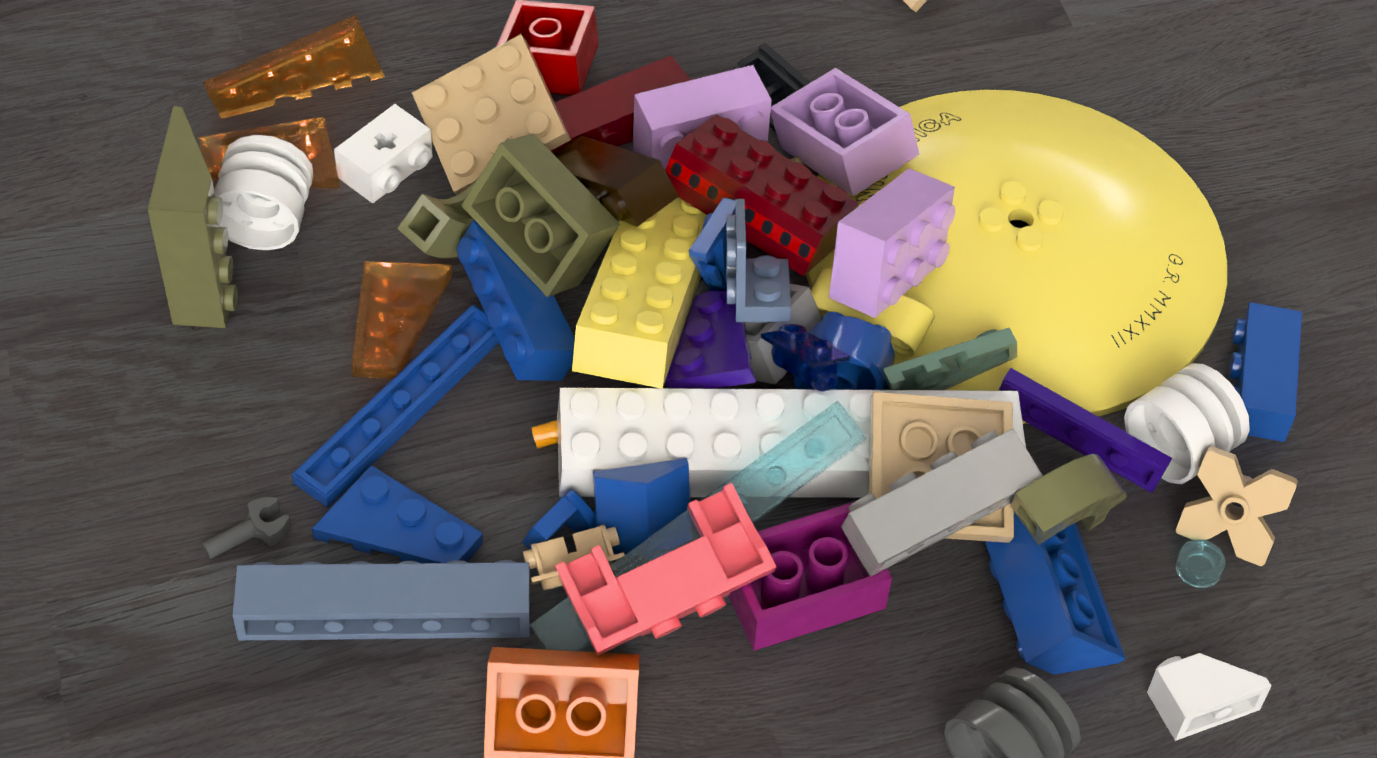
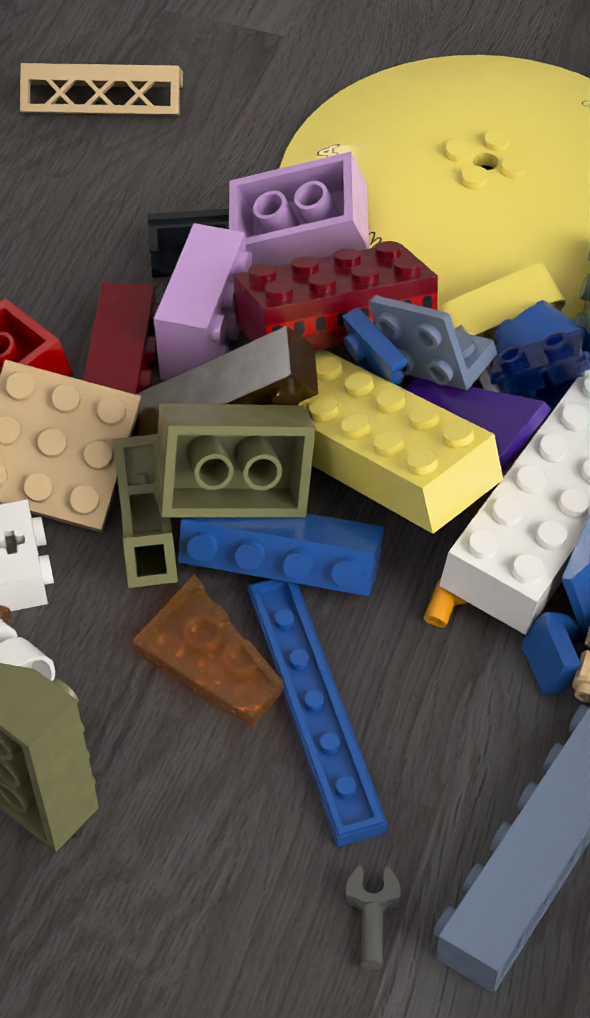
camera: 50 degrees left, 0 degrees up
(397, 521) = (453, 781): blue wing -> none
(891, 242) = (483, 236): lavender brick -> none

